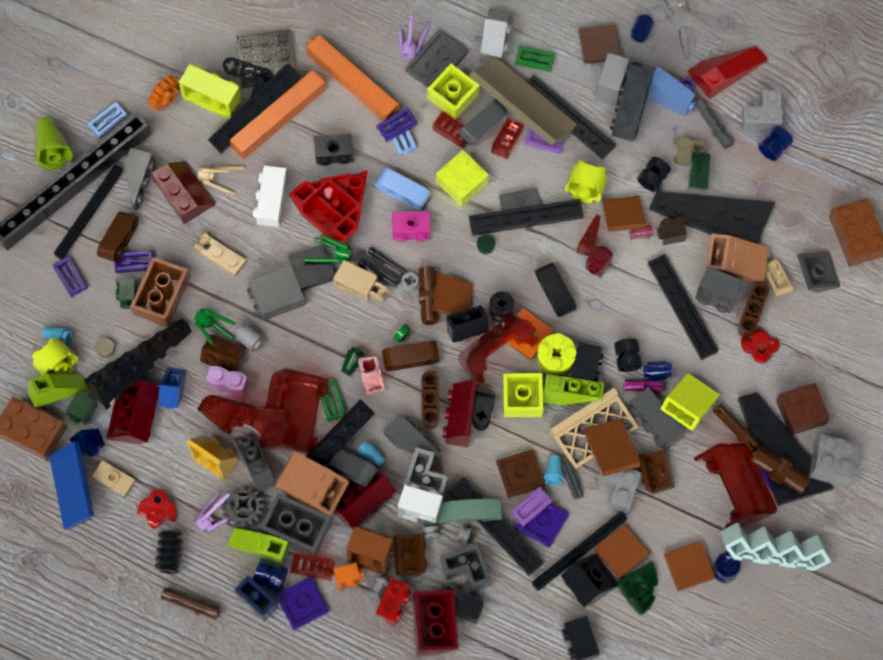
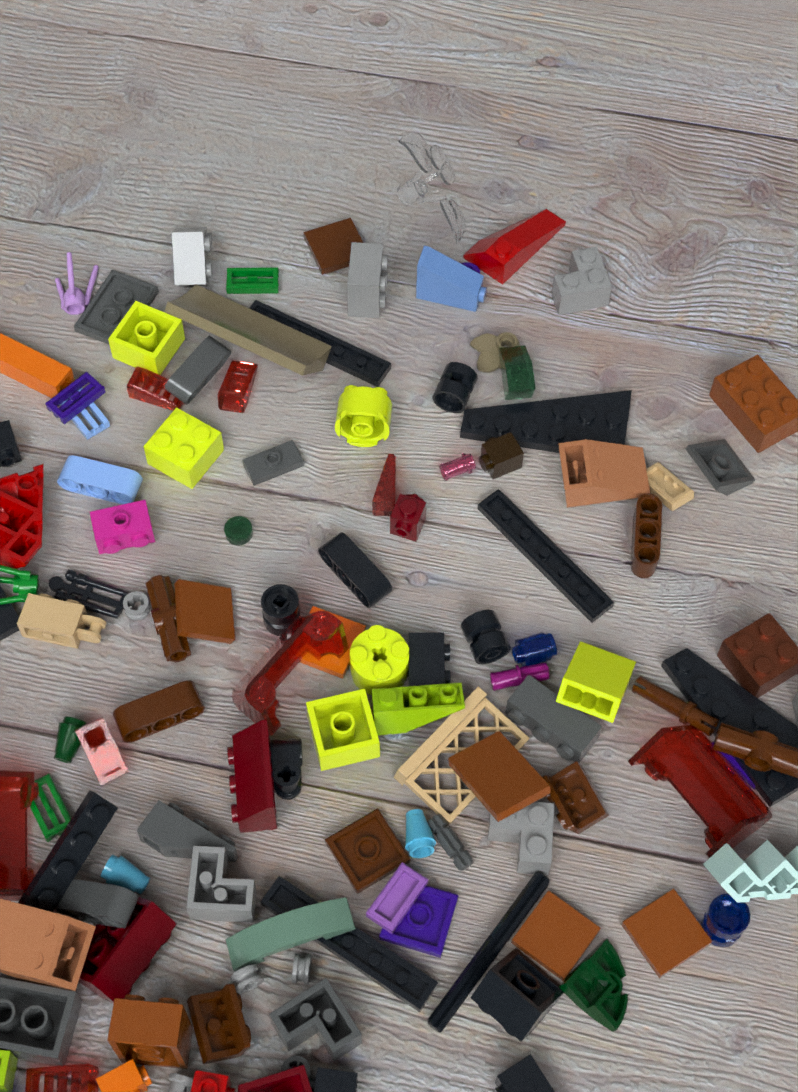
camera: 15 degrees left, 10 degrees down
(402, 333) = (138, 680): green tile -> none
(419, 504) = (217, 935): white brick -> none
(430, 408) = (201, 783): reddish brown beam -> none
(467, 323) = (234, 644): black brick -> none
(525, 217) = (287, 481): black plate -> none
(537, 141) = (283, 379): medium lavender tile -> none
(623, 213) = (426, 447): dark orange tile -> none
(633, 101) = (401, 296): black brick -> none
(642, 28) = (388, 215): clear blue brick -> none
(718, 129) = (526, 316): dark grey pin -> none
(718, 290) = (591, 516): dark grey brick -> none
(760, 343) = (671, 583): red plate -> none
(775, 143) = (609, 316): clear blue wheel -> none

